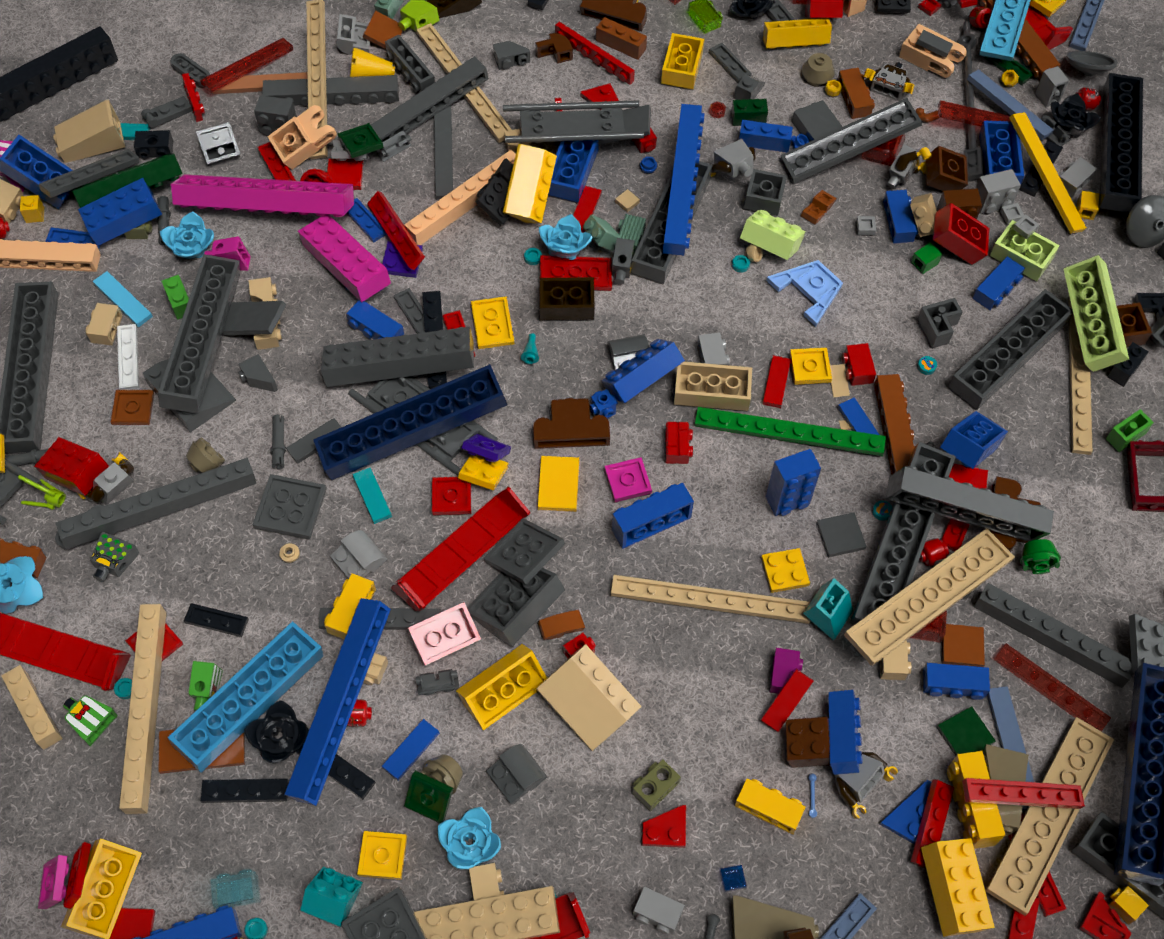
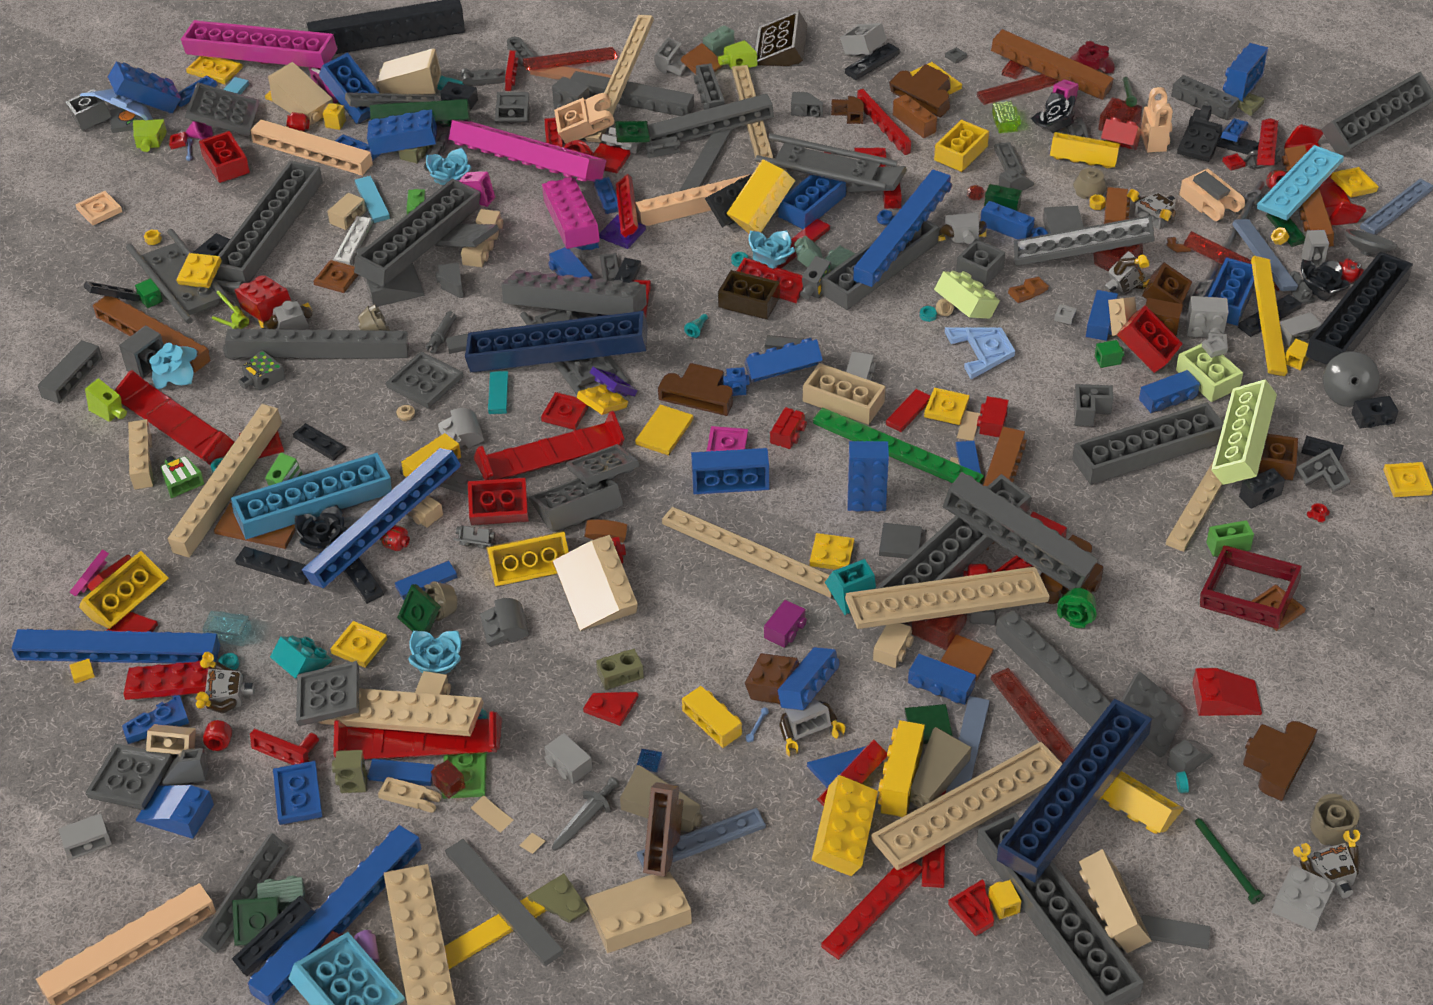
camera: 25 degrees right, 15 degrees down
(369, 65) = (673, 80): yellow cone -> none
(492, 322) = (675, 298): yellow tile -> none
(627, 200) = (850, 239): tan tile -> none
(787, 700) = (772, 639): red tile -> none
(927, 365) = (1061, 437): teal tile -> none
(973, 439) = (1062, 495): blue brick -> none
(1023, 793) = (944, 768): red plate -> none

